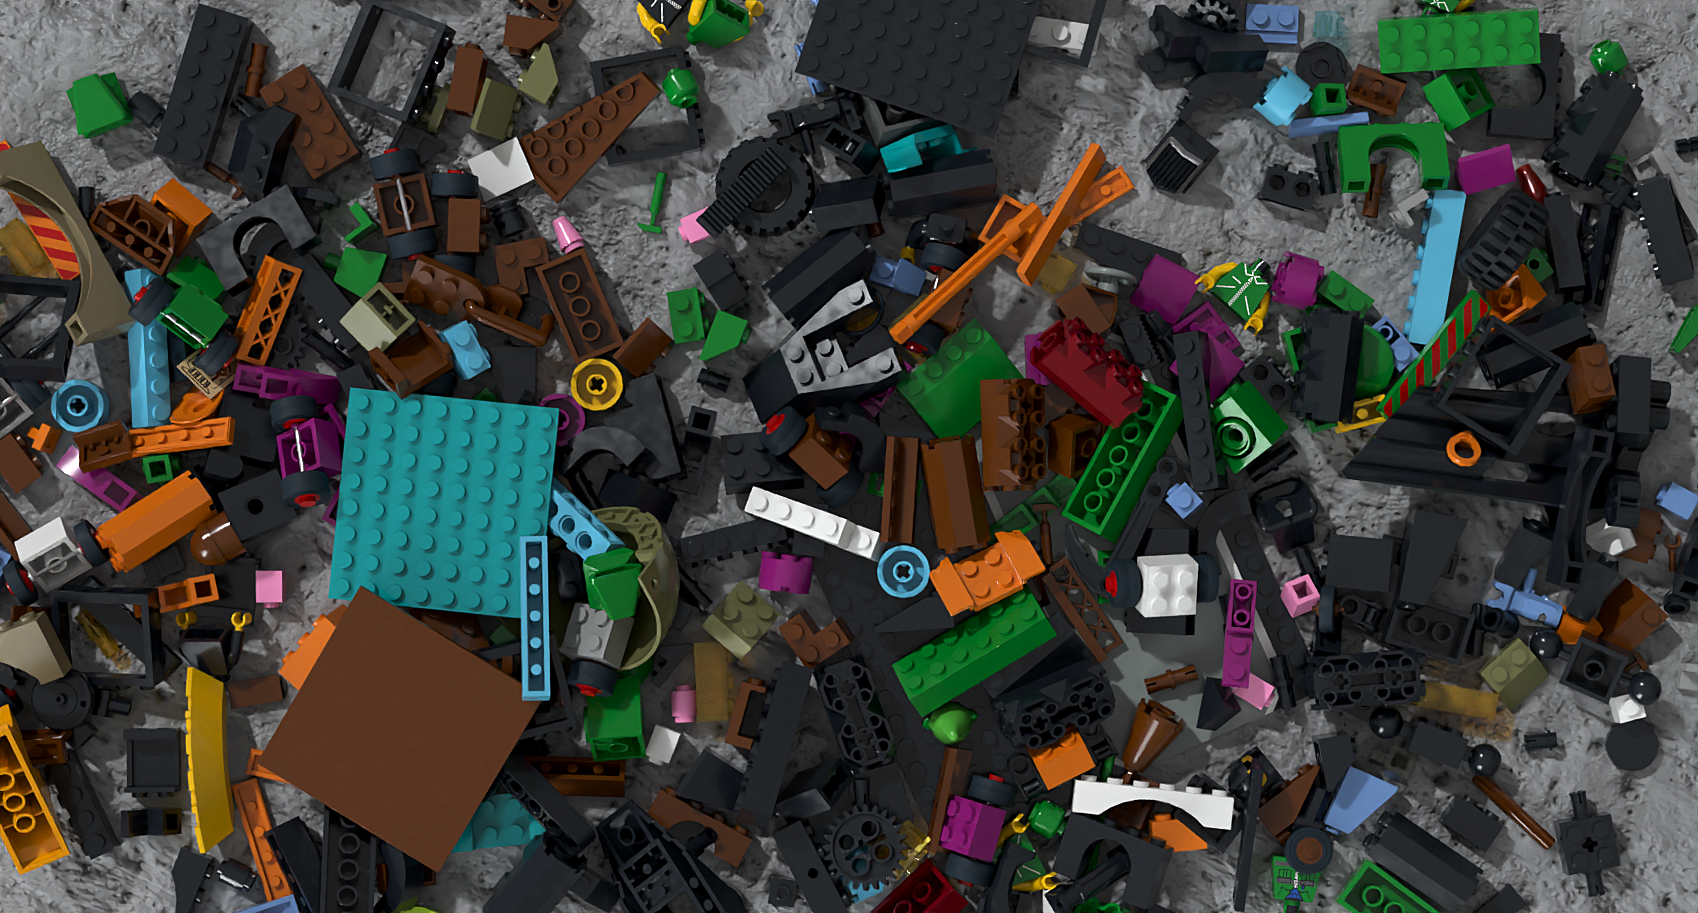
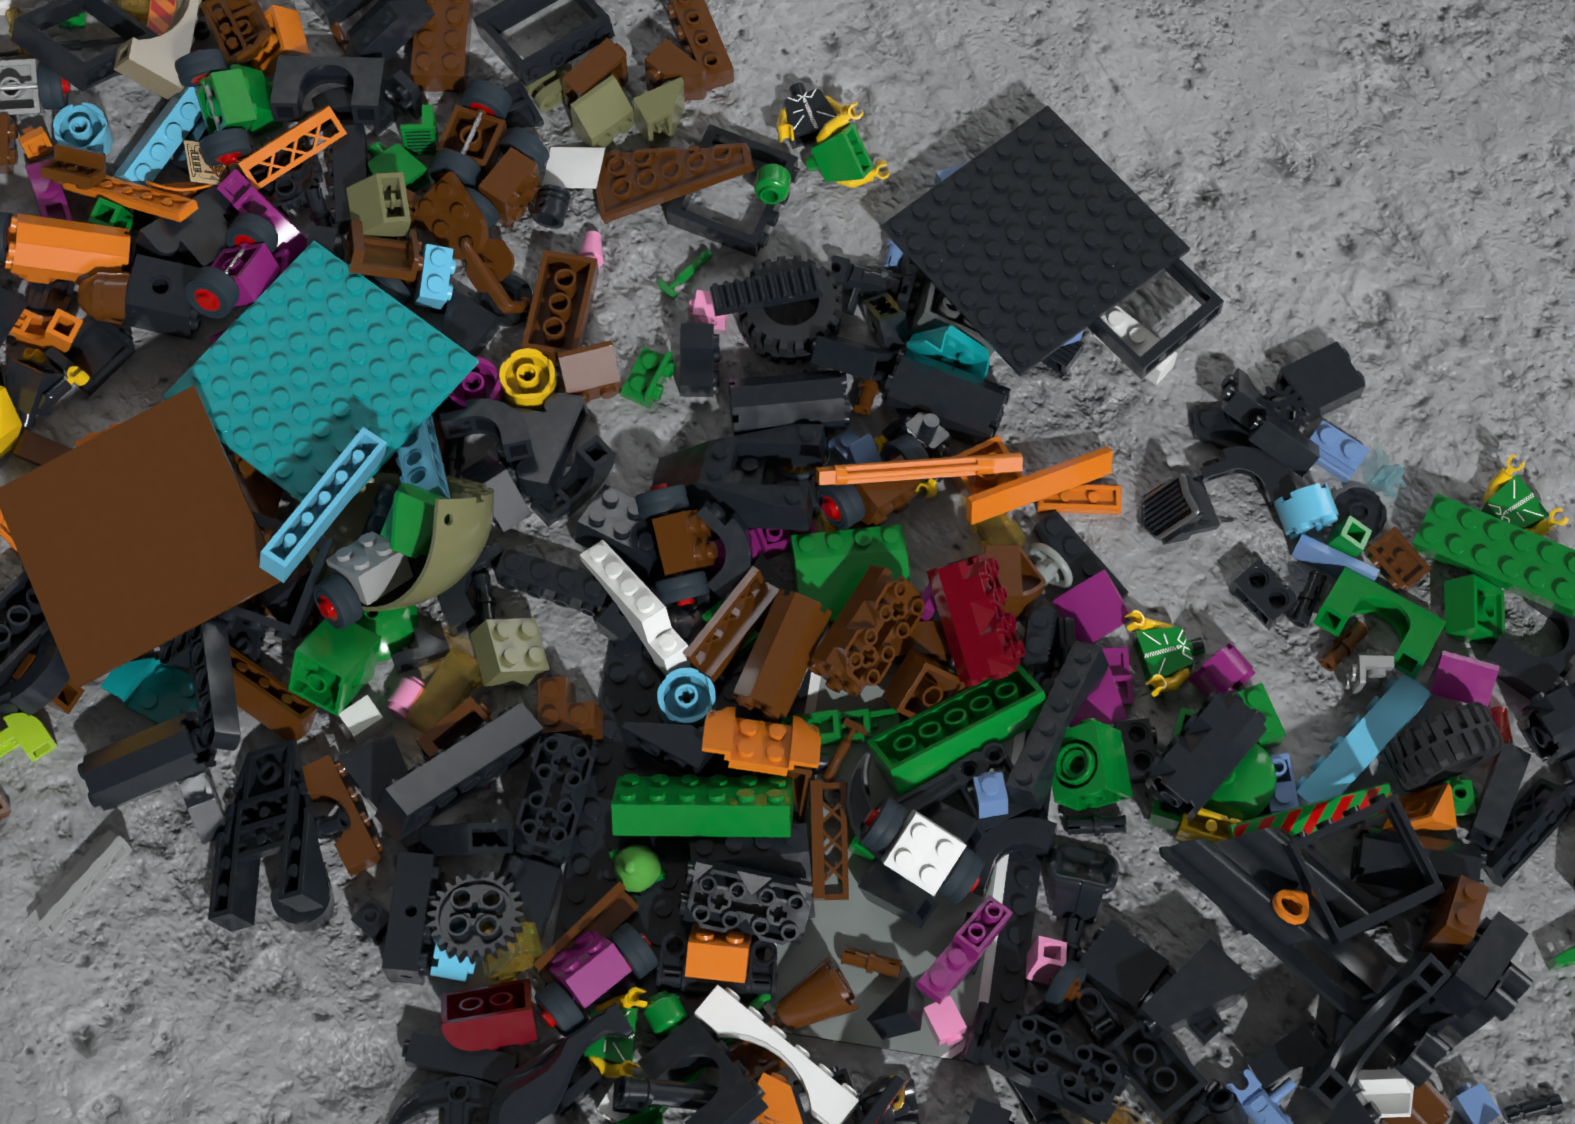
camera: 30 degrees right, 20 degrees down
(270, 588) = (124, 373): bright pink brick -> none
(515, 258) = (529, 241): reddish brown brick -> none
(713, 380) = (629, 437): black pin -> none
(725, 336) = (666, 406): green slope -> none
(785, 572) = (579, 637): magenta brick -> none

